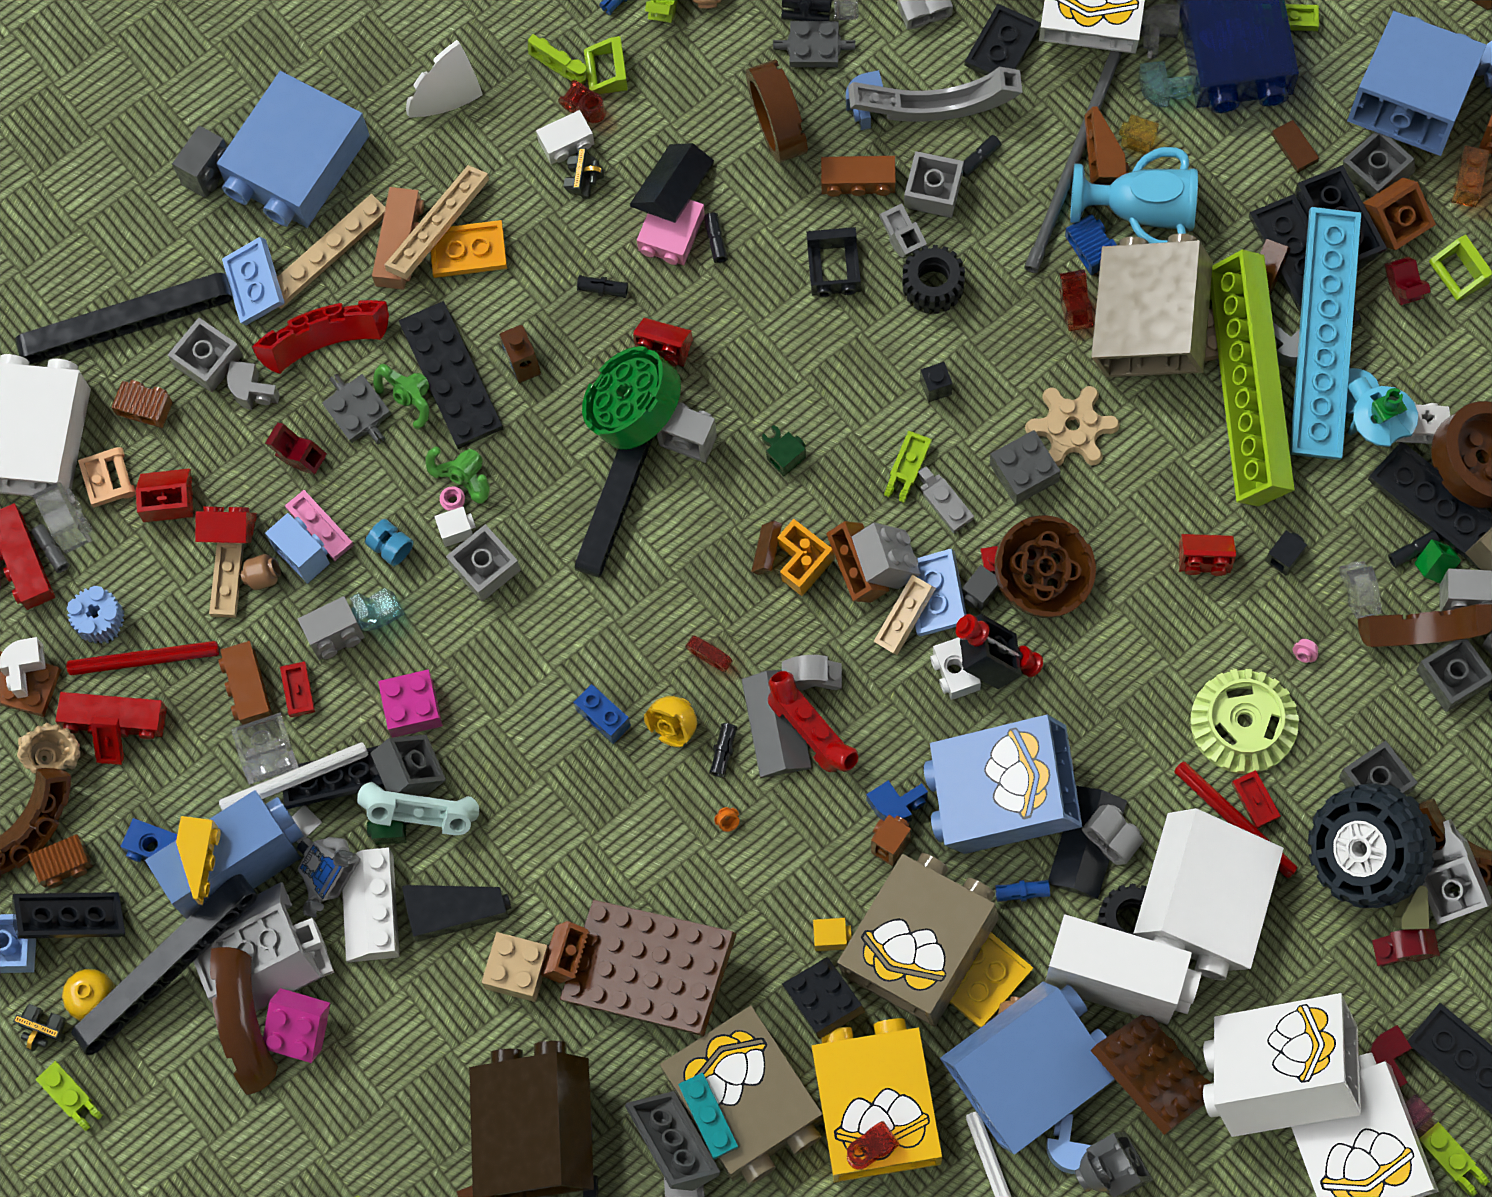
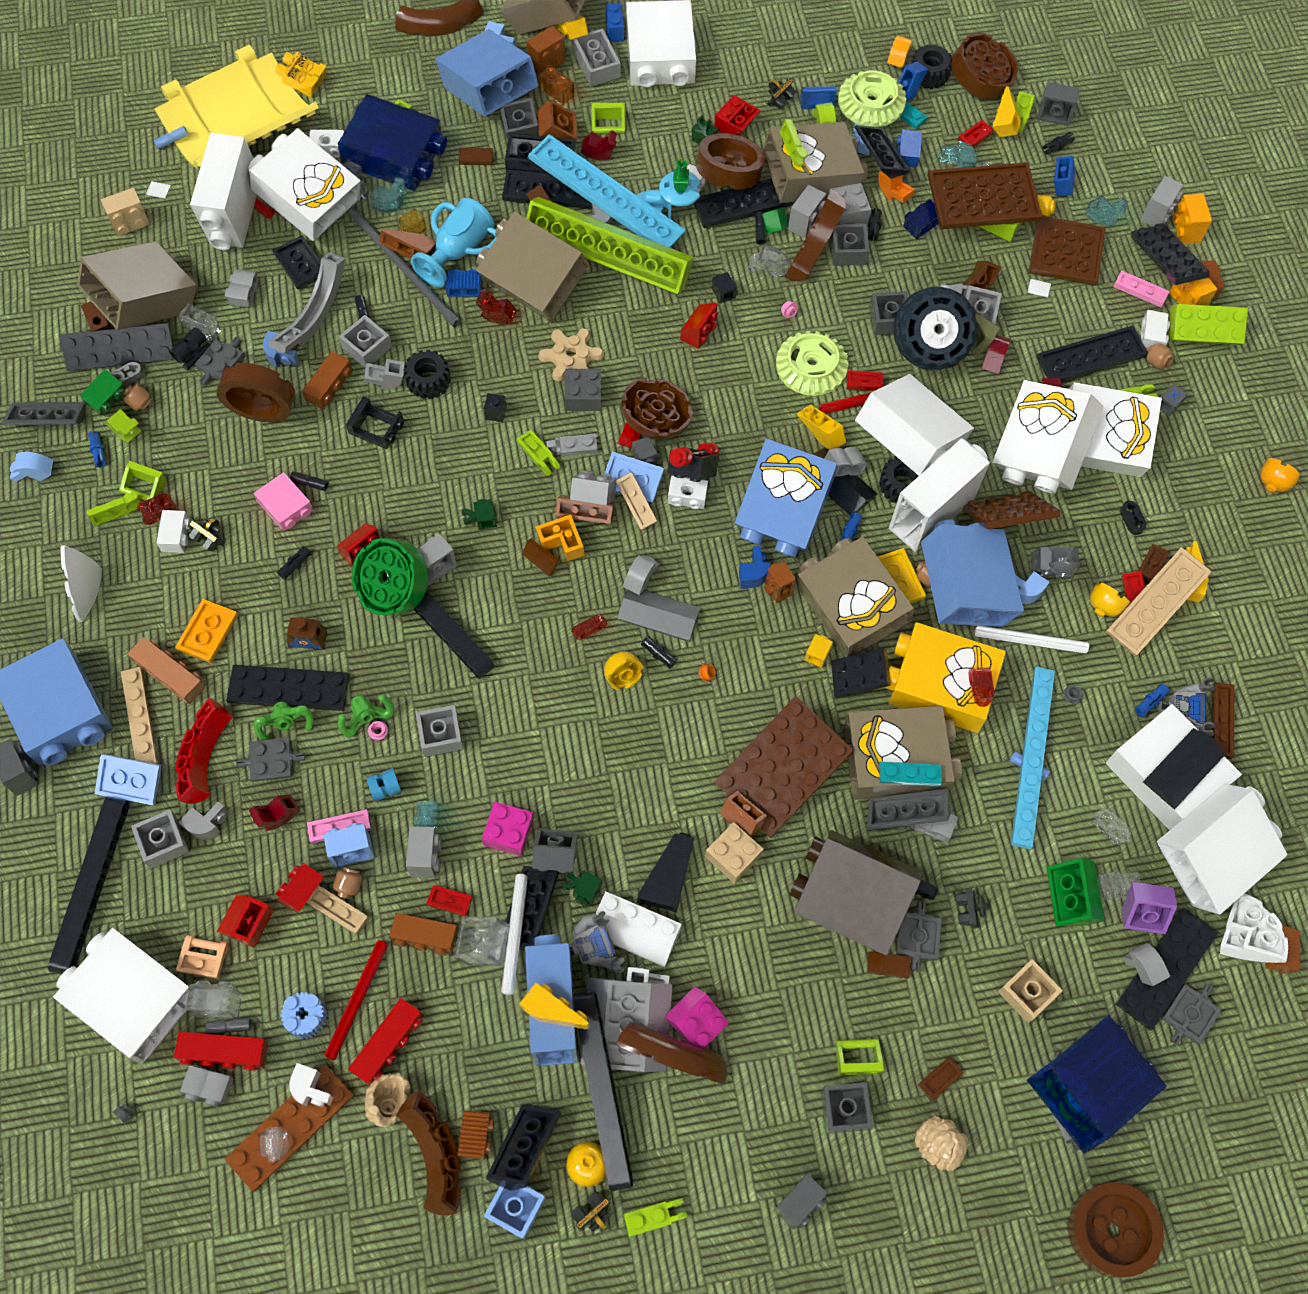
camera: 70 degrees left, 5 degrees down
(107, 740) = (406, 1052): red plate -> none
(140, 836) = (507, 1047): blue brick -> none
(142, 403) = (164, 903): dark orange brick -> none
(385, 806) = (578, 875): light aqua plate -> none
(436, 222) = (175, 637): tan plate -> none
(455, 526) = (399, 737): white brick -> none
(602, 714) = (591, 710): blue brick -> none
(673, 181) = (254, 481): black slope -> none
(790, 702) = (700, 588): red plate -> none
(1151, 781) = (824, 428): none -> yellow slope

